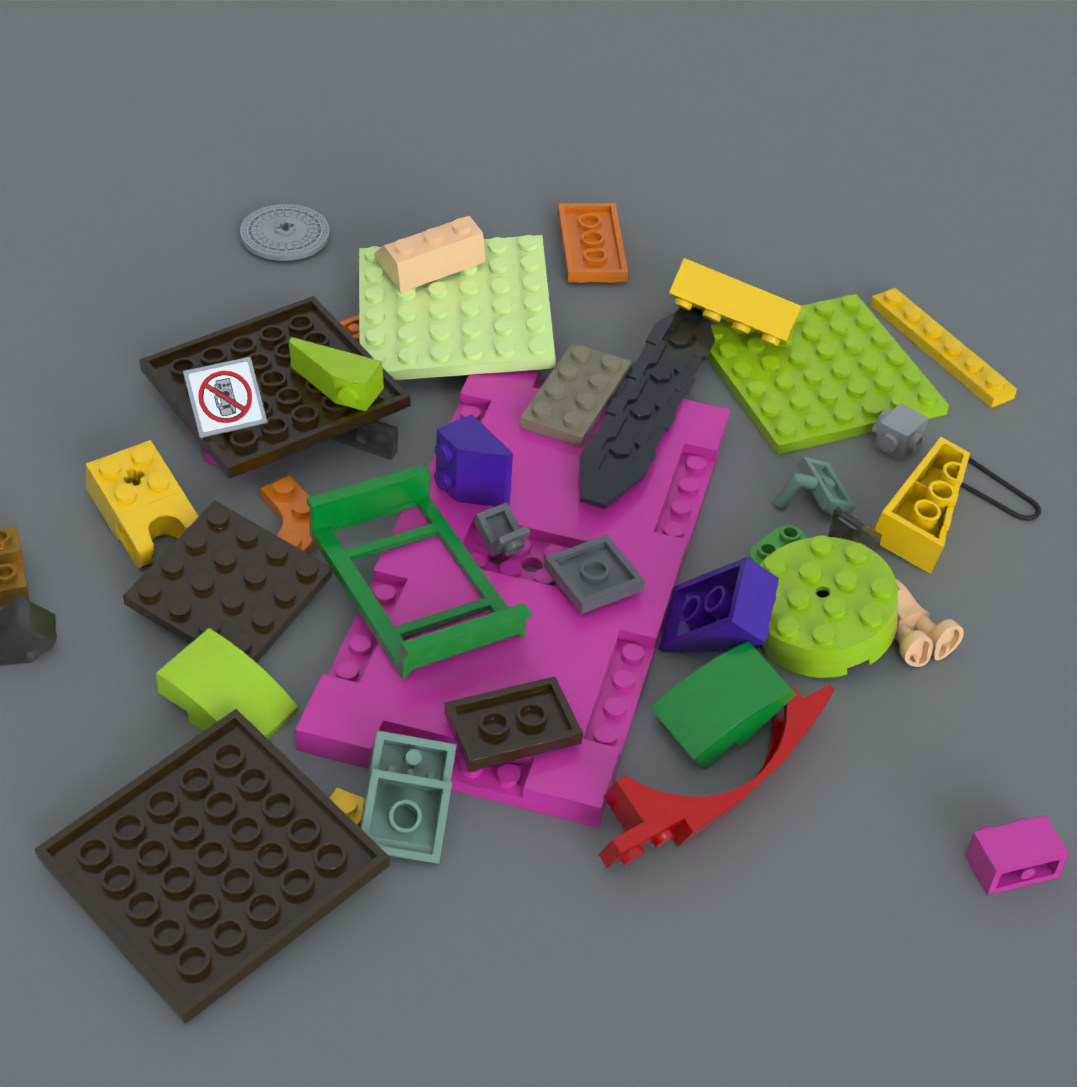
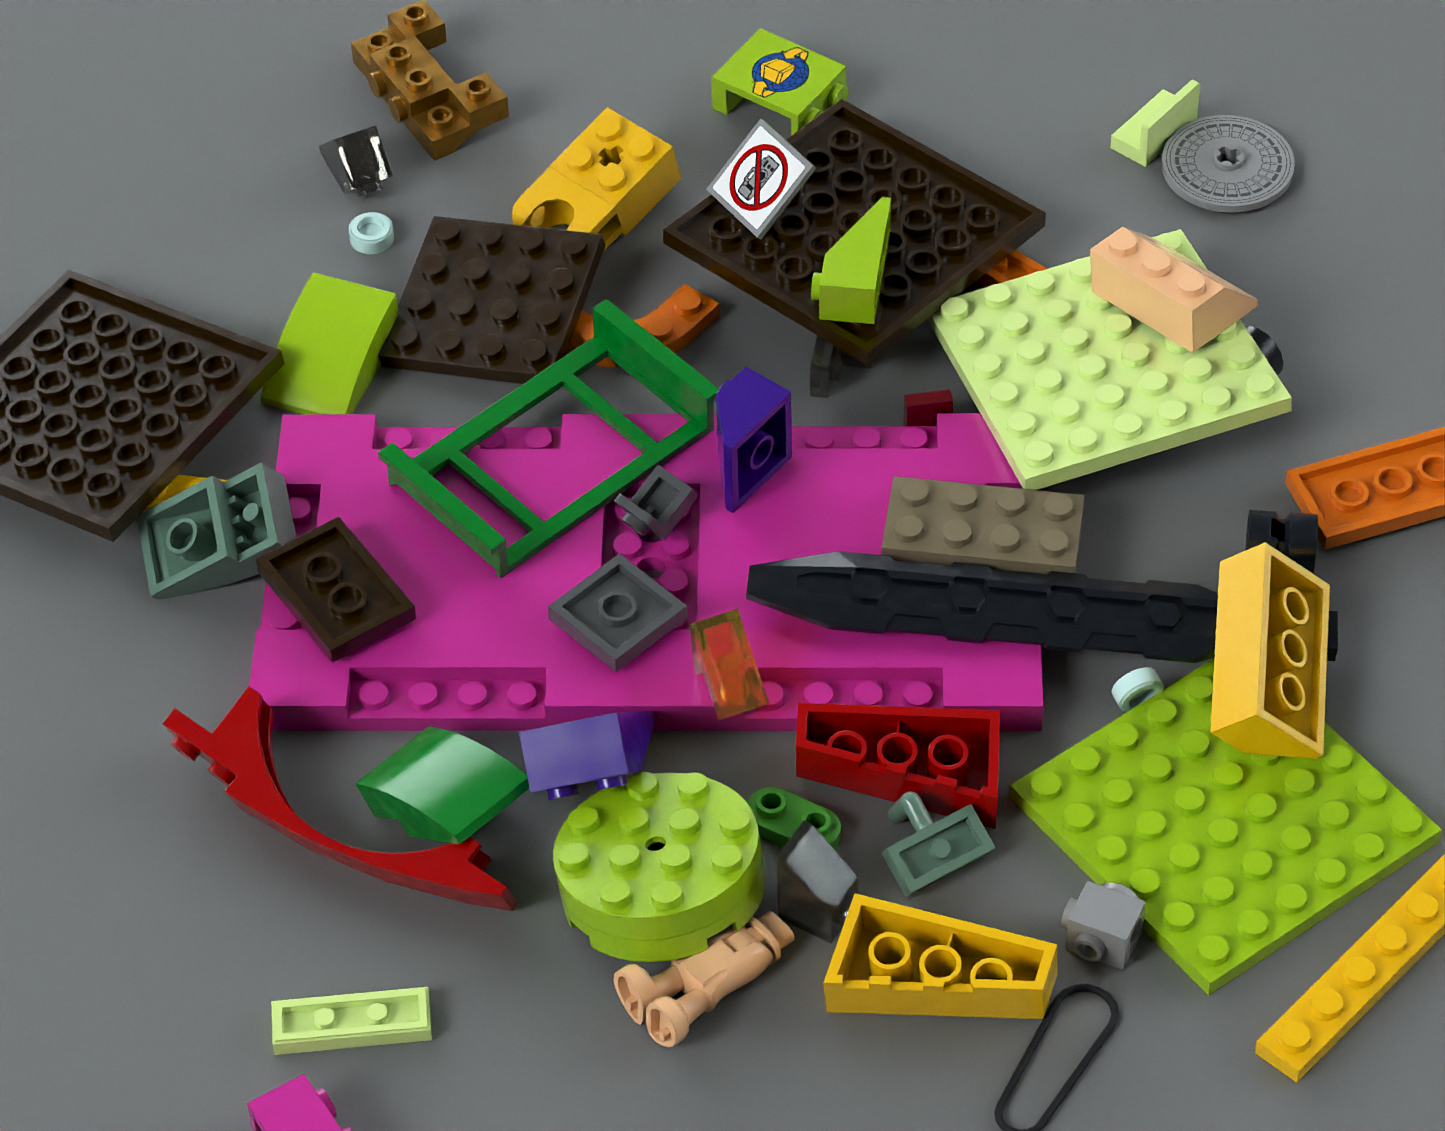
camera: 80 degrees right, 5 degrees up
(85, 388) = (780, 78): none -> lime panel
(95, 651) = (371, 233): none -> light aqua tile
(236, 246) = (1150, 128): none -> yellowish green panel
(448, 401) = (922, 408): none -> dark red tile
(626, 288) = (1291, 536): none -> black wheel
(670, 522) = (728, 664): none -> slope
(719, 374) = (1136, 688): none -> light aqua tile
(756, 474) = (893, 750): none -> red wedge
(900, 815) = (351, 1020): none -> yellowish green tile

